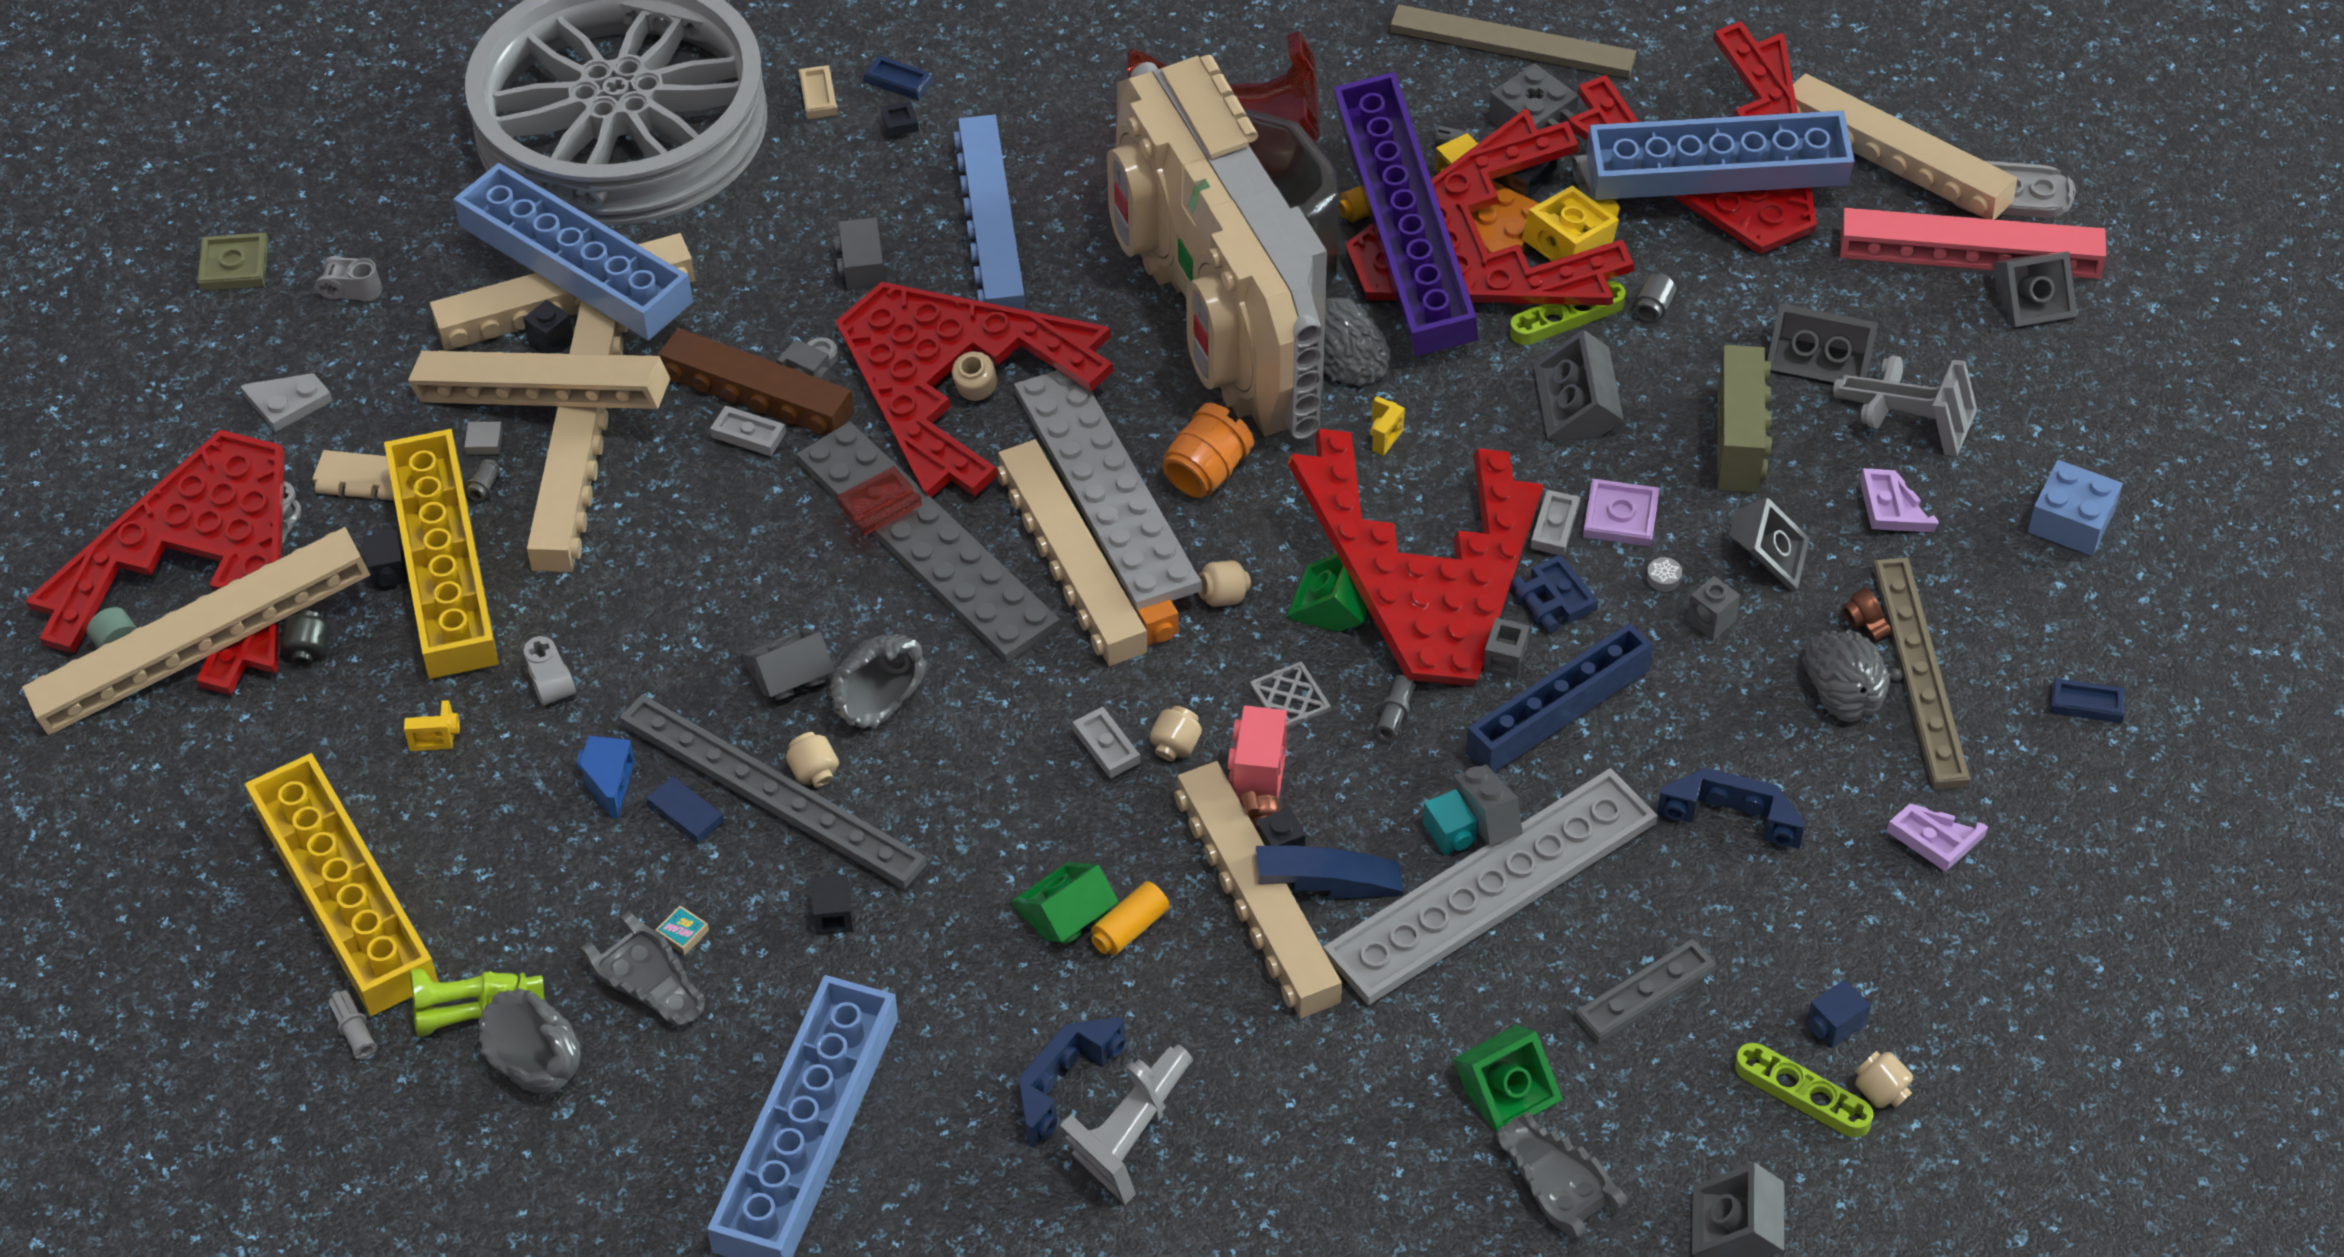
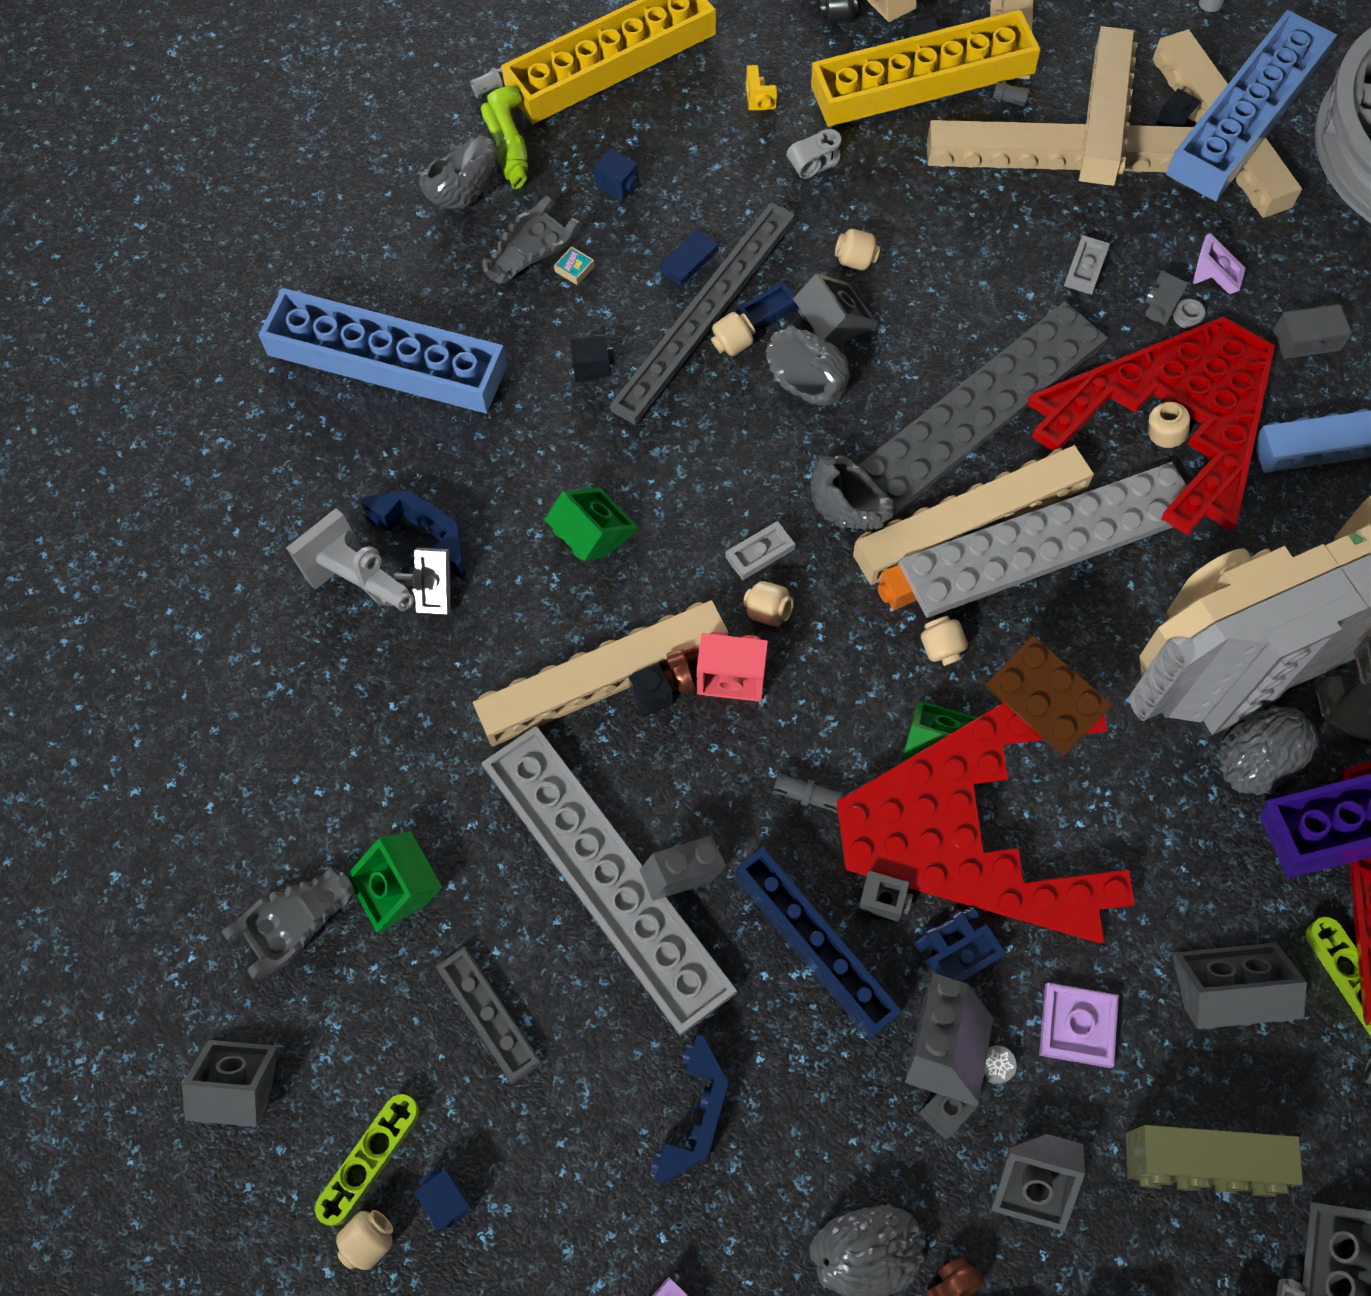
camera: 90 degrees right, 15 degrees up
(483, 438) = (1058, 91): light grey tile -> none
(549, 879) = (616, 174): none -> dark blue brick
(607, 770) = (716, 201): blue slope -> none
(702, 636) = (857, 249): none -> tan head
(756, 383) = (1140, 264): reddish brown brick -> none
(766, 320) = (1219, 264): none -> lavender slope
(766, 730) = (769, 306): none -> dark blue tile
(879, 500) = (1007, 357): clear red plate -> none
(1055, 649) = (848, 495): none -> dark grey hair
(1129, 919) = (571, 572): light orange brick -> none
(1131, 1042) = (429, 580): none -> plate
(1206, 451) = (1096, 618): orange piece -> none
(1277, 675) = (847, 693): light grey window -> none
(1319, 869) = (613, 729): dark blue slope -> none
(1320, 466) = (1048, 696): none -> reddish brown plate
(1387, 424) = (1160, 791): yellow bracket -> none
(1450, 822) = (670, 833): teal brick -> none
(1555, 522) = (1053, 953): light grey plate -> none
(1650, 597) = (950, 1041): none -> dark grey slope

